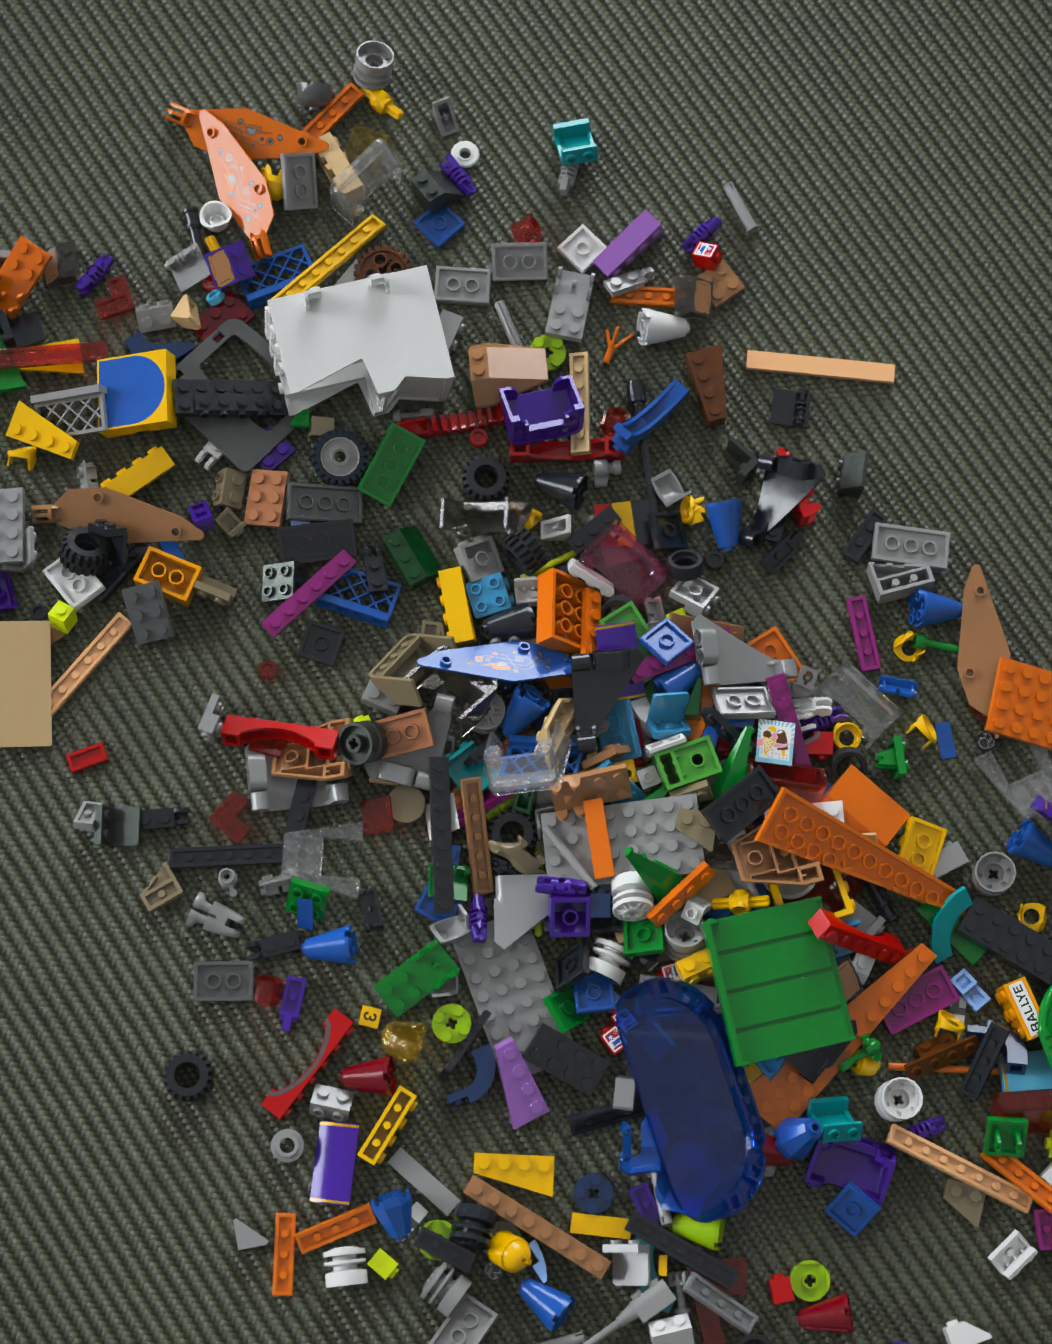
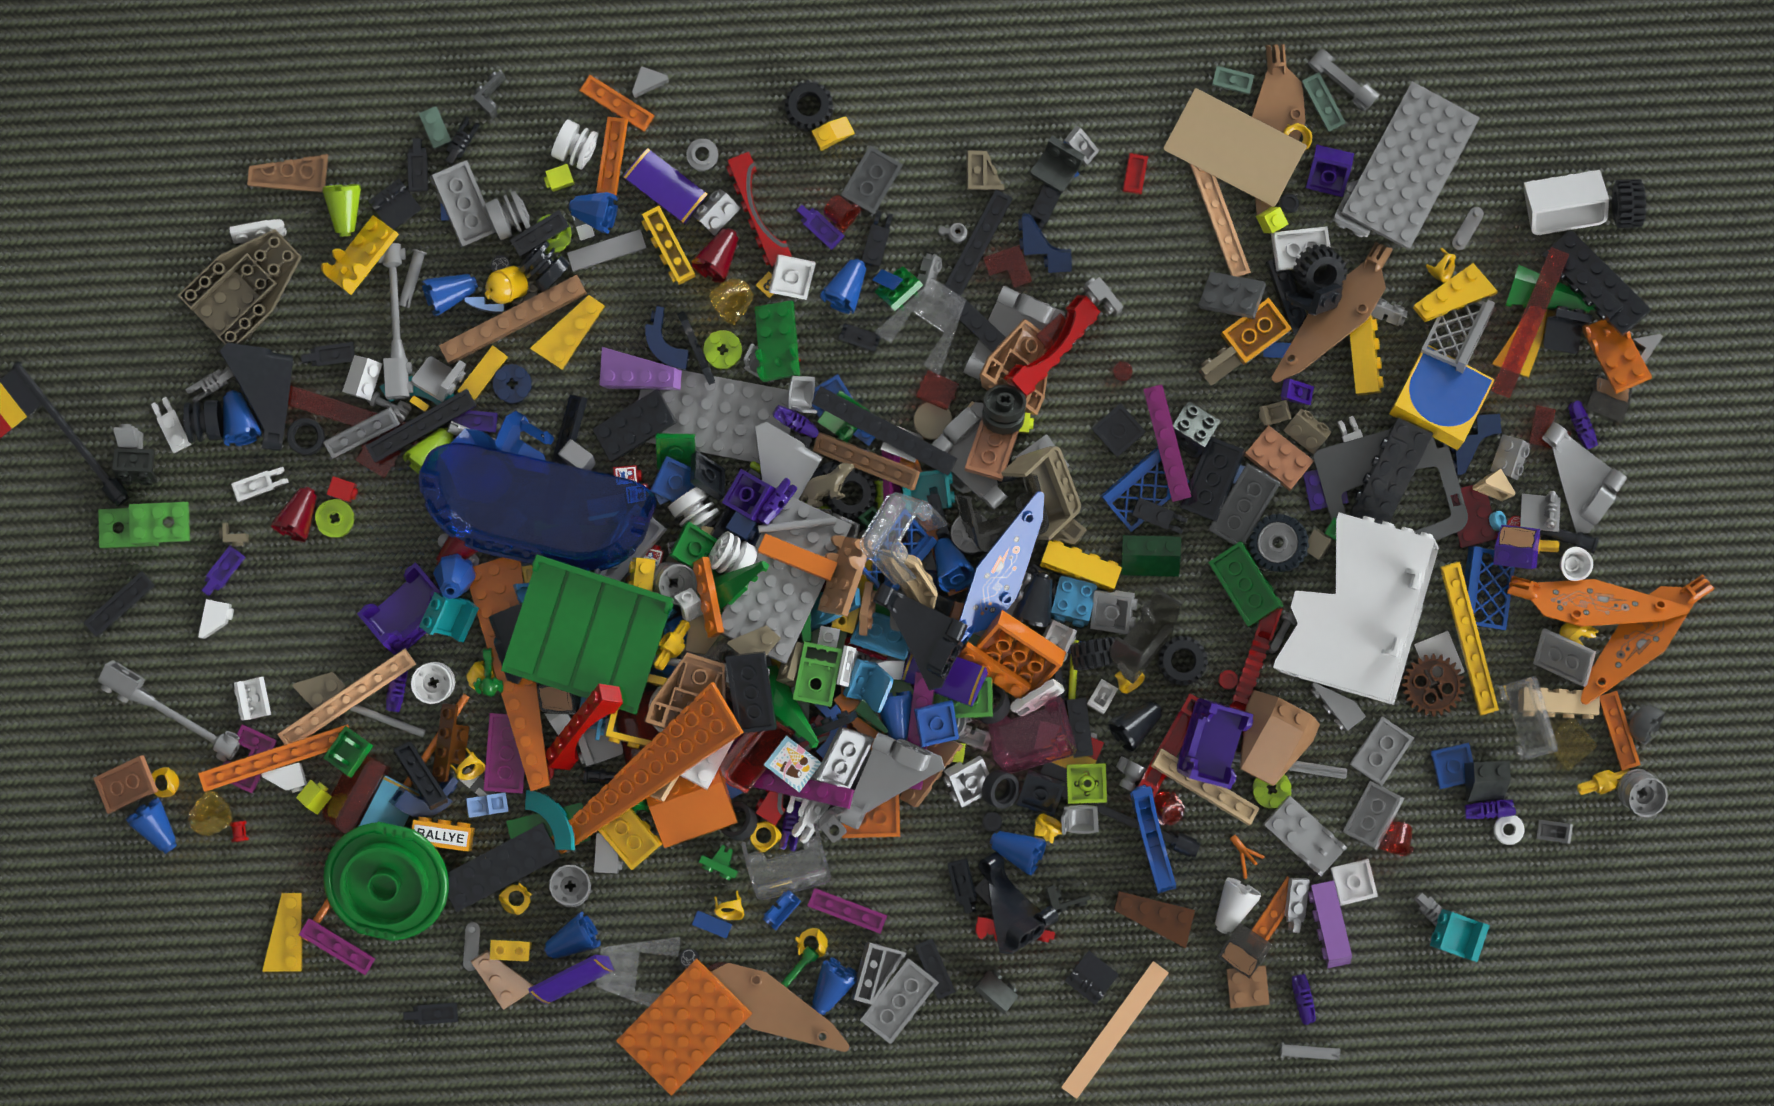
camera: 130 degrees right, 10 degrees up
(140, 246) = (1585, 479): none -> light grey panel
(199, 805) = (1035, 243): none -> dark blue arch
(201, 1041) = (832, 133): none -> yellow slope
(218, 917) = (928, 205): light grey piece -> none
(351, 999) = (791, 277): none -> white tile
(638, 486) = (1098, 793): none -> lime plate
(706, 255) = (1278, 989): red brick -> none
(852, 1209) = (369, 589): blue tile -> none
(952, 1120) = (388, 720): none -> light grey bar

